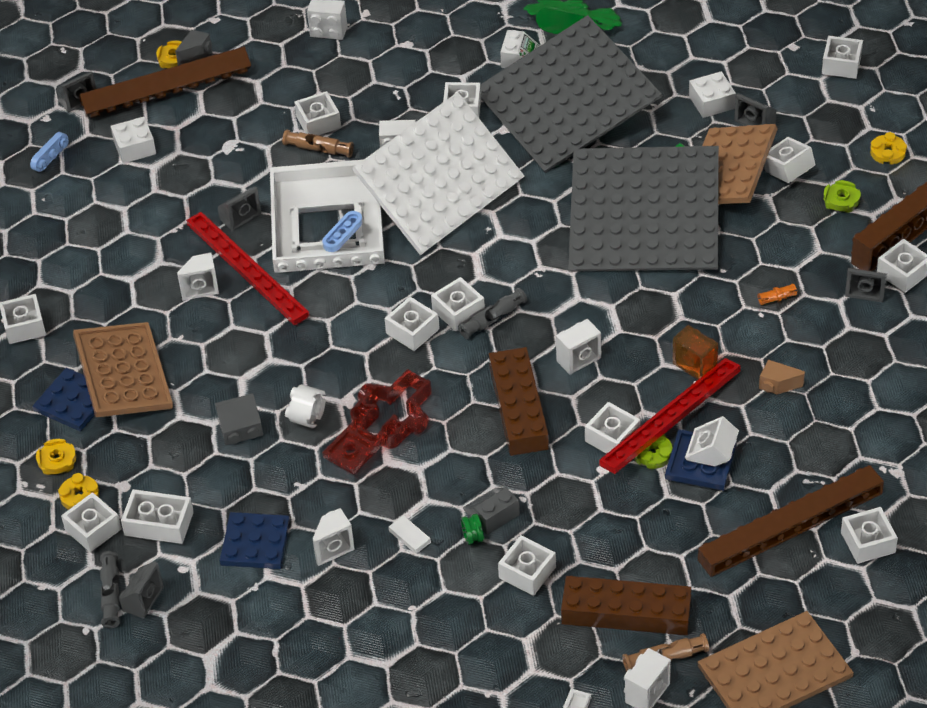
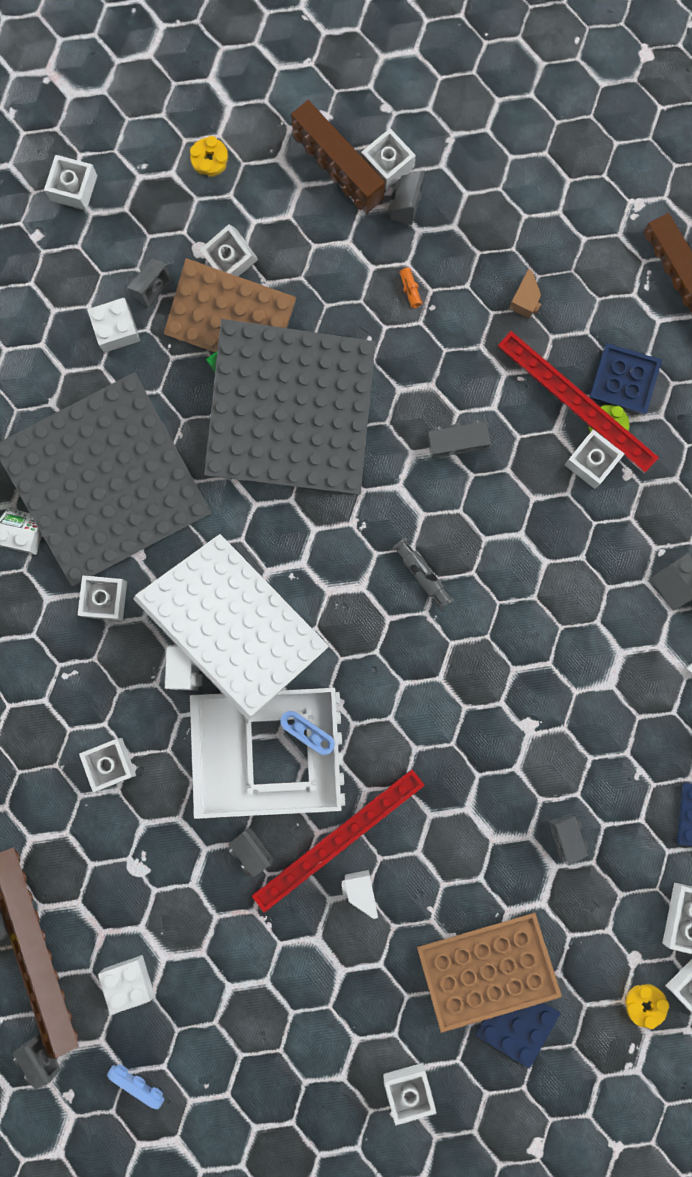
camera: 90 degrees left, 35 degrees up
(52, 465) = (608, 1044): yellow plate -> none
(305, 405) = (553, 768): white brick -> none
(322, 144) = (154, 749): medium nougat piece -> none
(366, 412) = (592, 710): clear red piece -> none
(412, 323) = (440, 657): white brick -> none
(457, 303) = (414, 608): white brick -> none
(518, 401) = (548, 550): reddish brown brick -> none
(578, 346) = (484, 486): white brick -> none
(626, 332) = (458, 439): none -> dark grey brick
(694, 352) = (500, 370): clear orange brick -> none
(712, 442) = (620, 364): white slope -> none
(848, 202) = (277, 220): lime plate -> none

